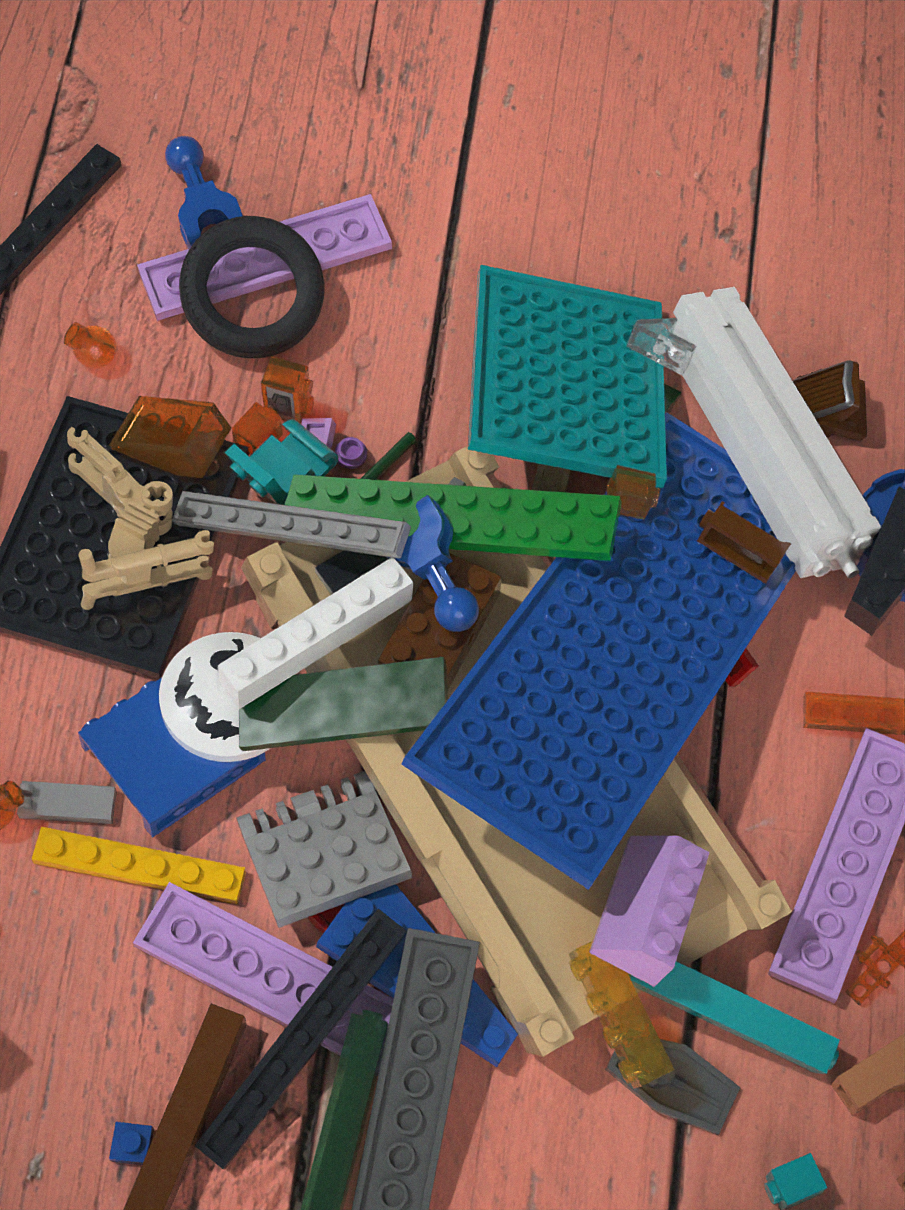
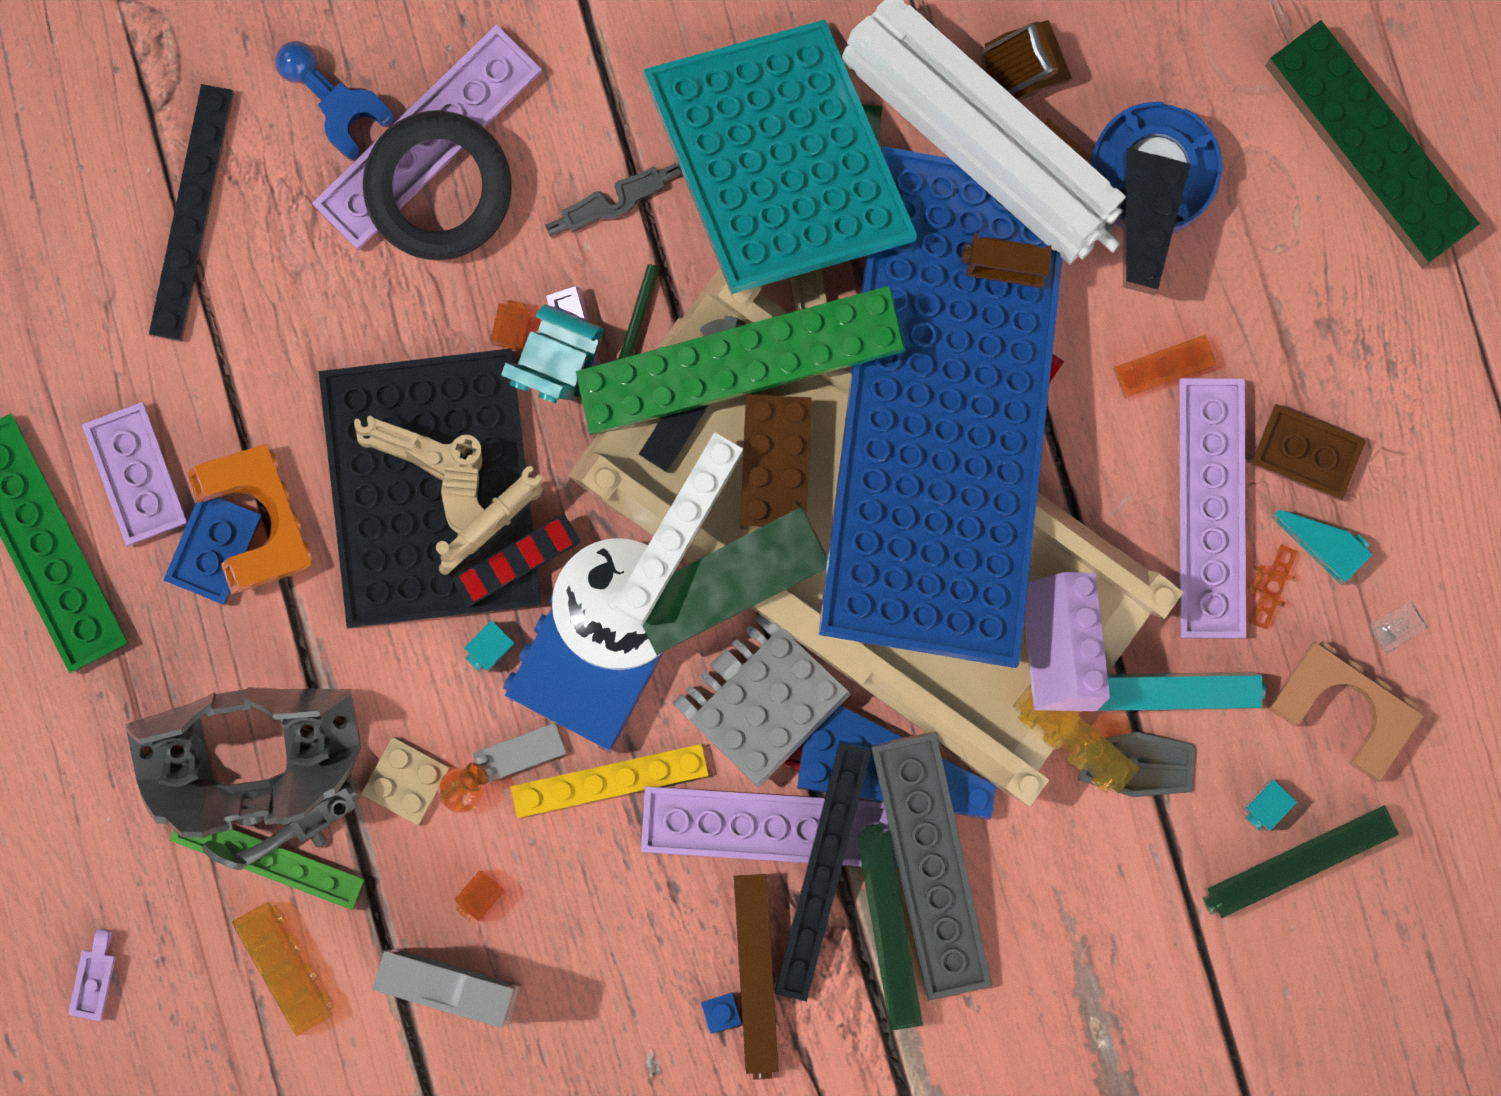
camera: 20 degrees left, 20 degrees up
(89, 691) = (488, 647): none -> teal brick
(91, 345) = (314, 309): clear orange piece -> none
(154, 622) = (516, 560): none -> tile
(172, 434) = (438, 372): clear orange slope -> none
(287, 389) = (523, 279): clear orange brick -> none
(292, 524) = (601, 428): light grey tile -> none
(351, 453) = (606, 309): medium lavender plate -> none
(385, 371) = (597, 208): none -> dark grey piece
(427, 555) = (741, 414): blue piece -> none
(635, 489) = (891, 262): clear orange brick -> none
(657, 342) = (843, 82): clear slope -> none

